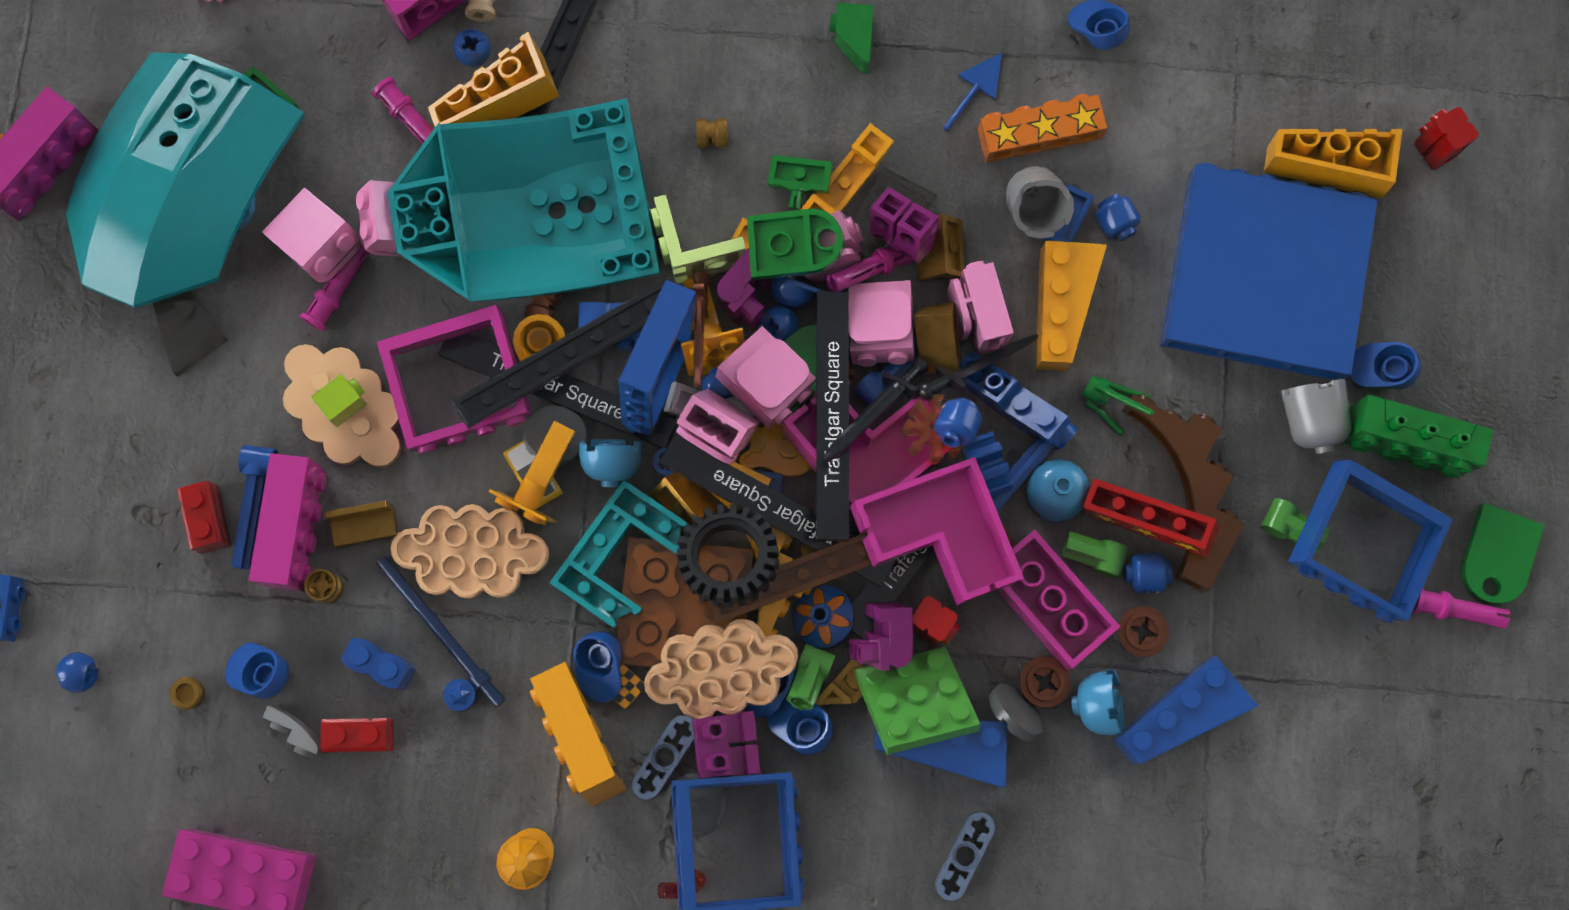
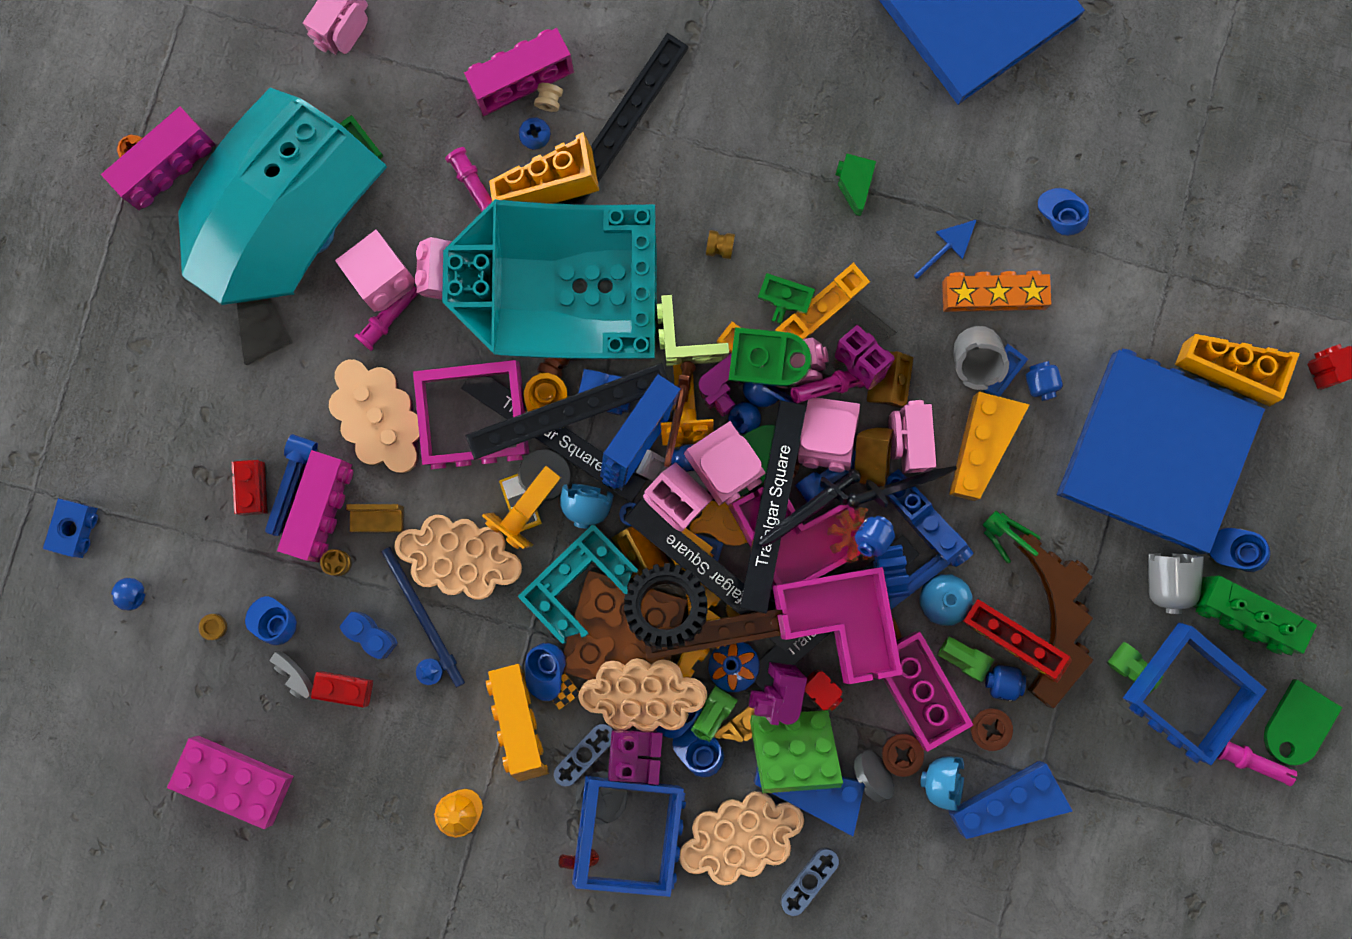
camera: 15 degrees right, 5 degrees up
(340, 399) = (375, 413): lime brick -> none
(872, 819) = (741, 838): none -> light nougat plate

